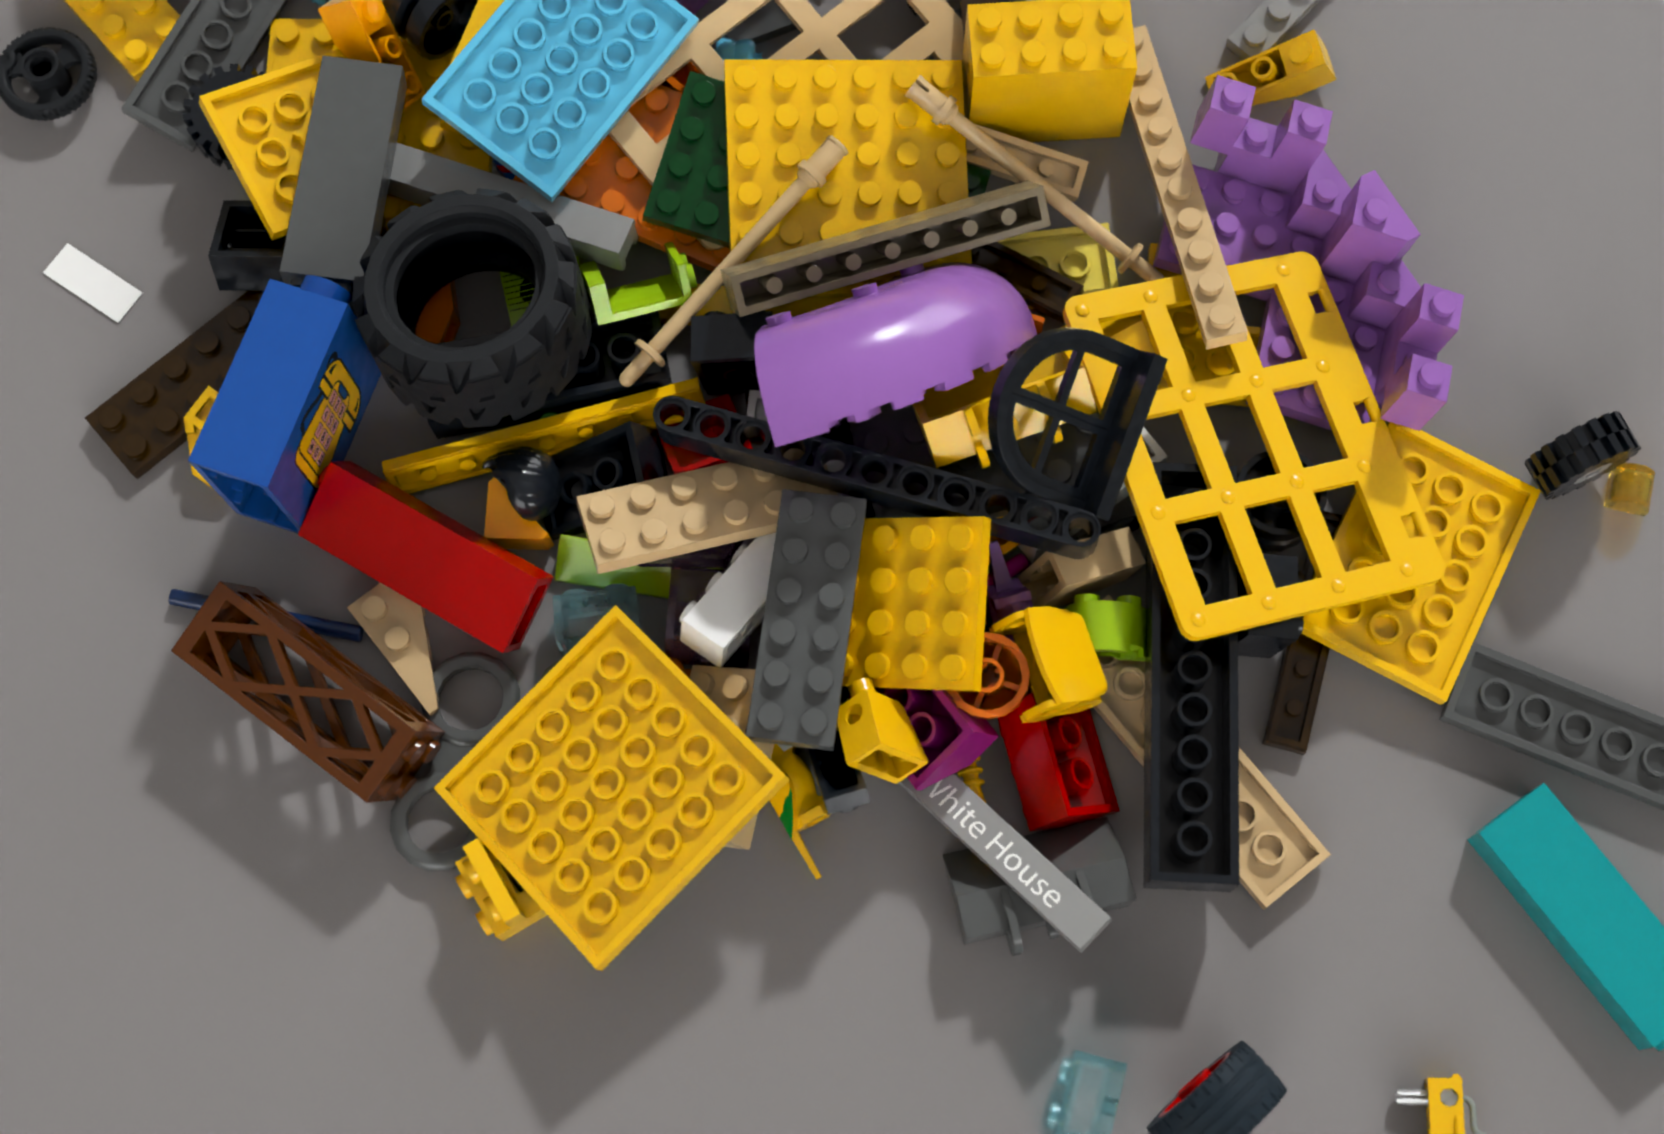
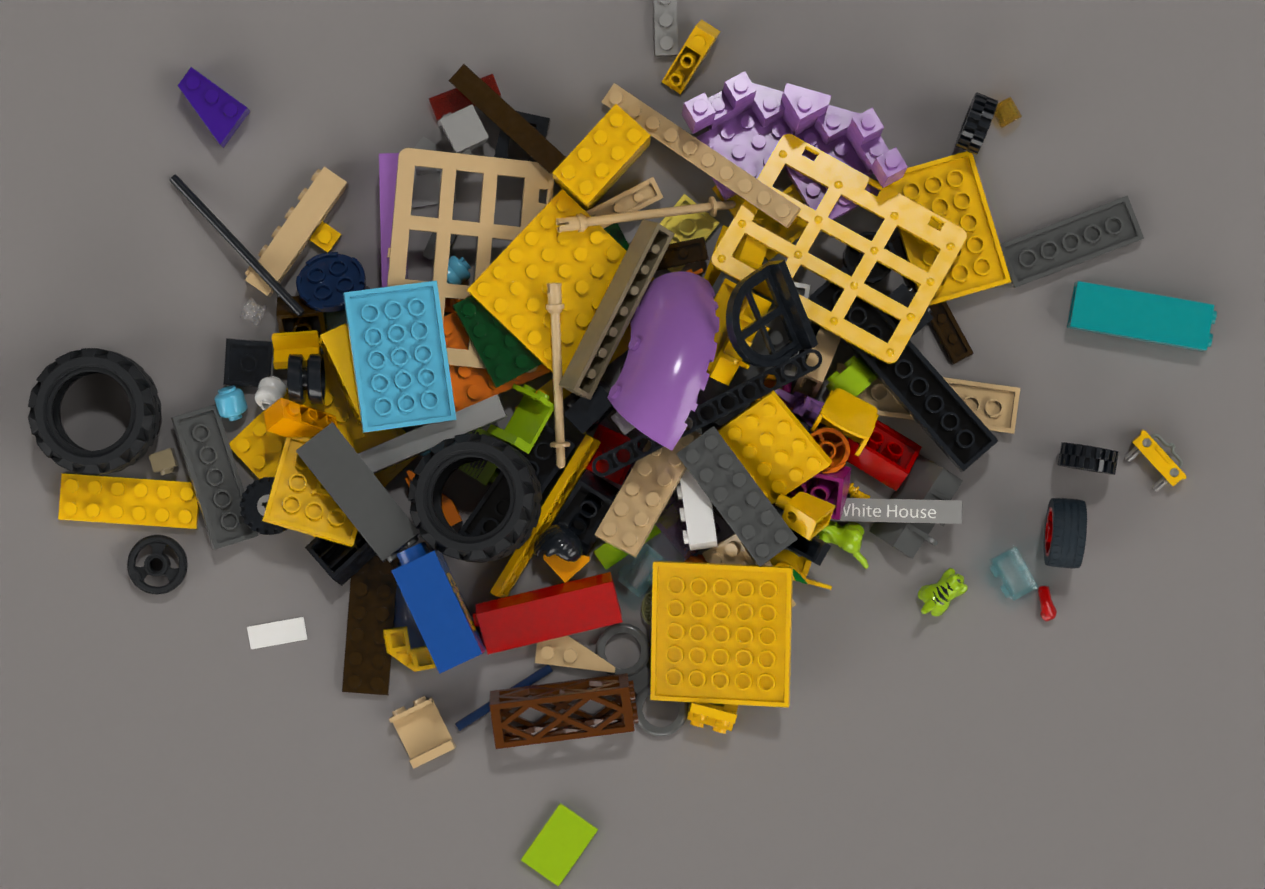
camera: 50 degrees left, 15 degrees up
(125, 558) = (422, 731): none -> tan panel
(131, 871) = (559, 844): none -> lime tile
(903, 830) = (846, 537): none -> lime animal
(955, 1032) = (939, 595): none -> lime animal
(1345, 1036) = (1088, 458): none -> black wheel

